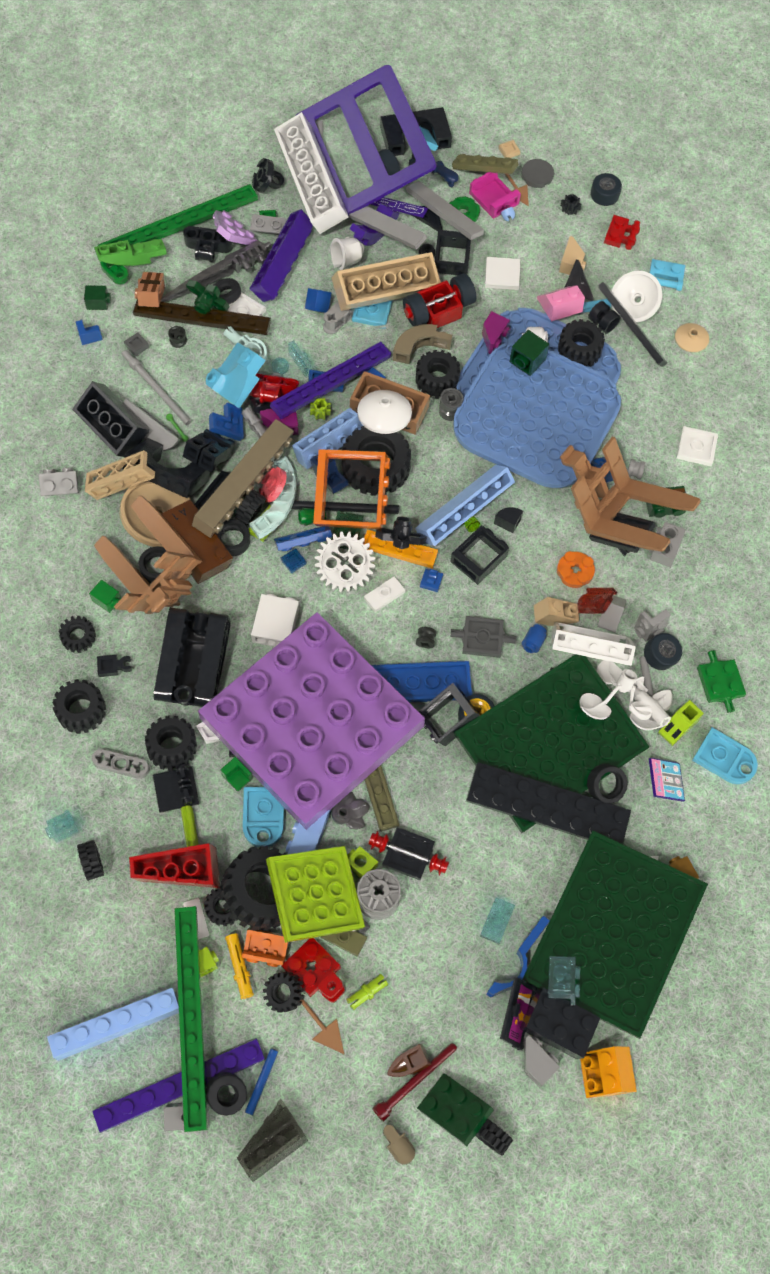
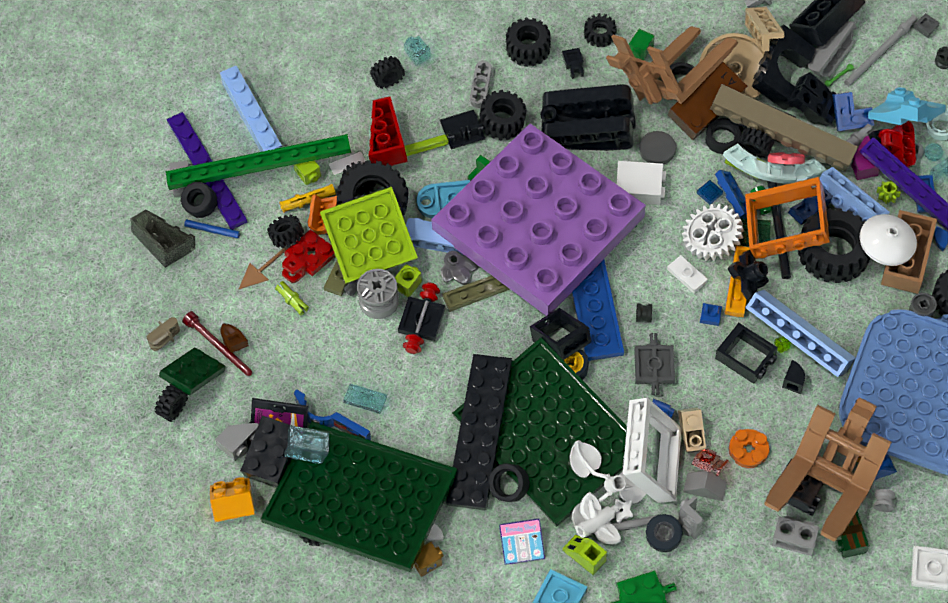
camera: 90 degrees right, 5 degrees down
(233, 600) = (657, 147): none -> dark grey tile

